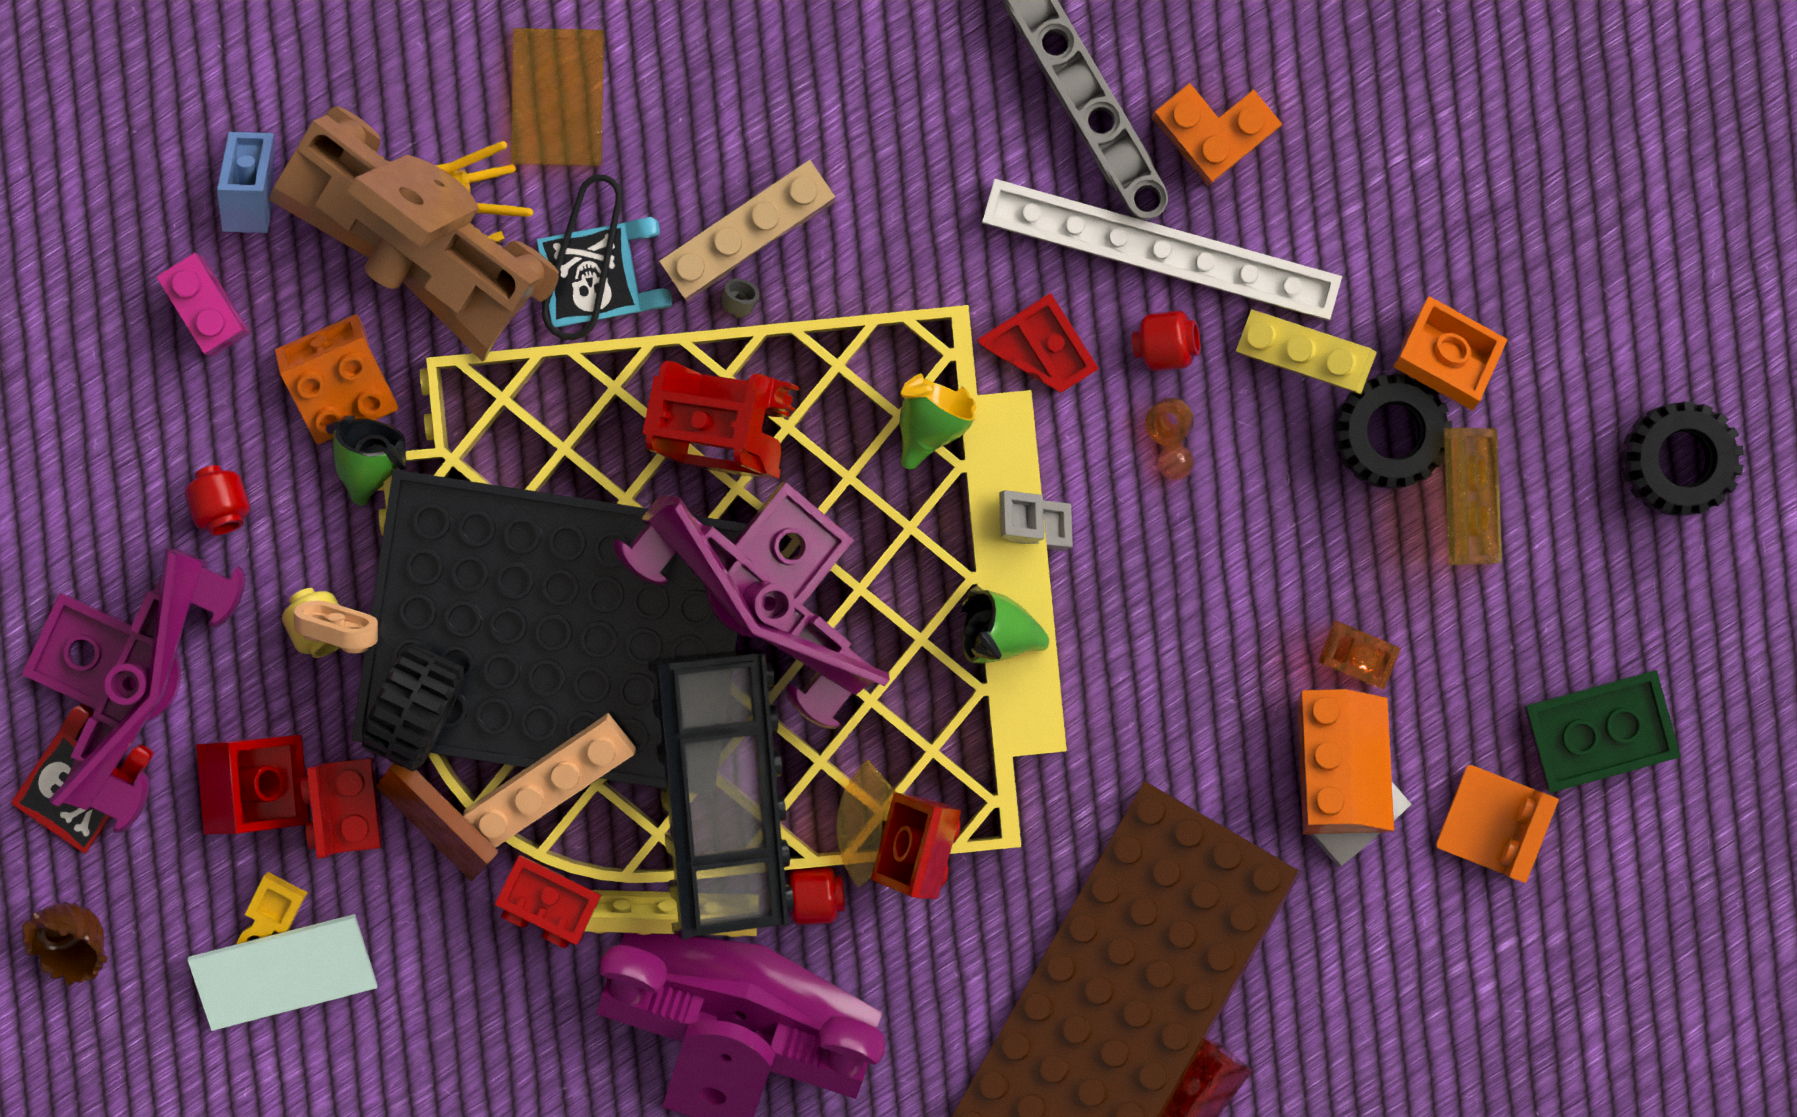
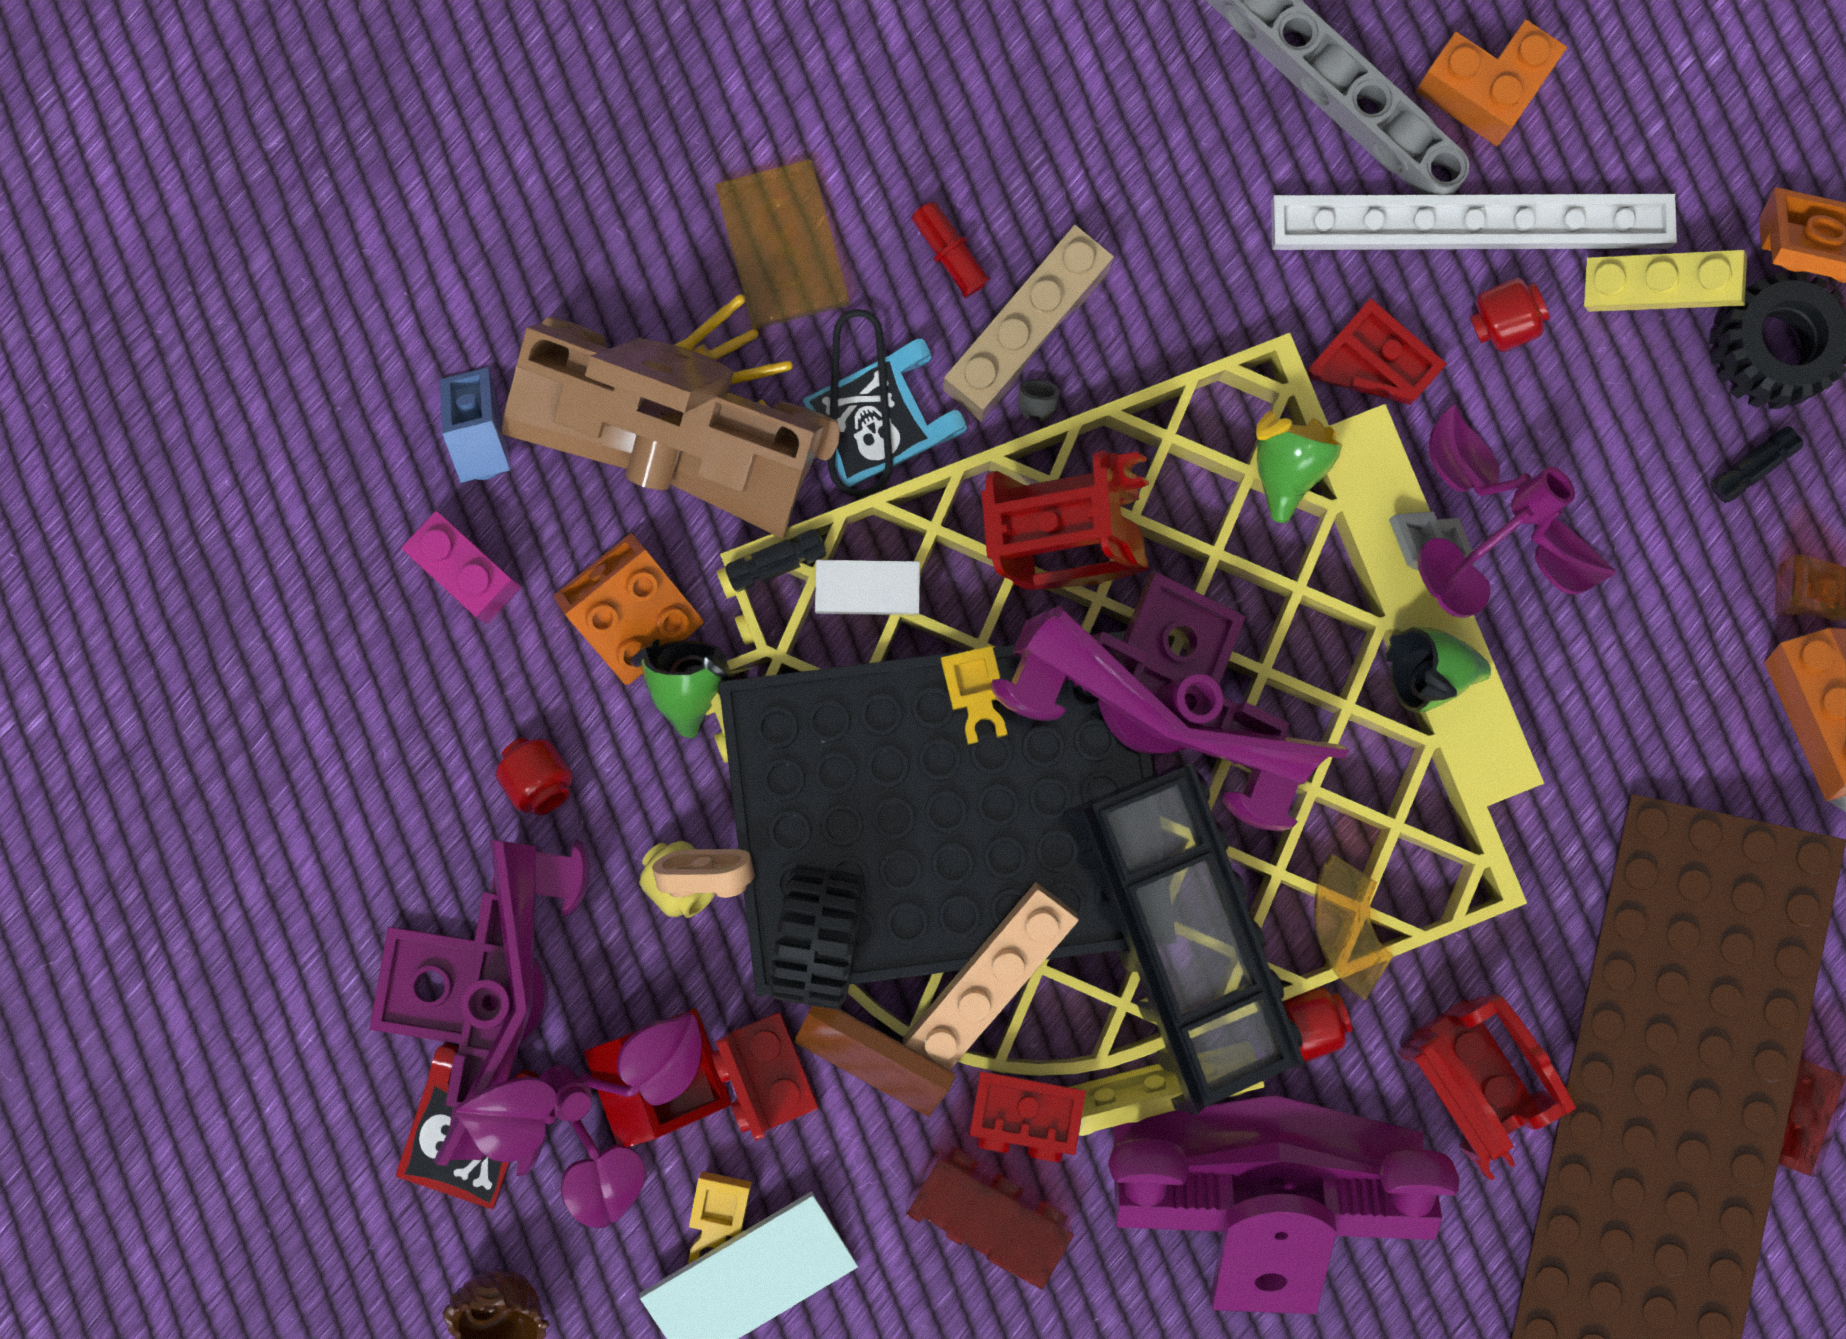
camera: 15 degrees left, 5 degrees down
(181, 861) = (512, 1115): none -> magenta plant
(470, 378) = (775, 560): none -> black axle
(498, 976) = (990, 1216): none -> clear red wedge
(542, 423) = (867, 587): none -> white tile
(599, 529) = (969, 687): none -> yellow plate
(701, 144) = (950, 249): none -> red axle
(916, 846) = (1418, 933): red slope -> none
(946, 978) = (1479, 1080): none -> red animal
(1091, 457) = (1561, 554): none -> magenta plant
(1175, 460) = (1555, 440): clear orange plate -> none
(1342, 530) = (1757, 464): none -> black axle

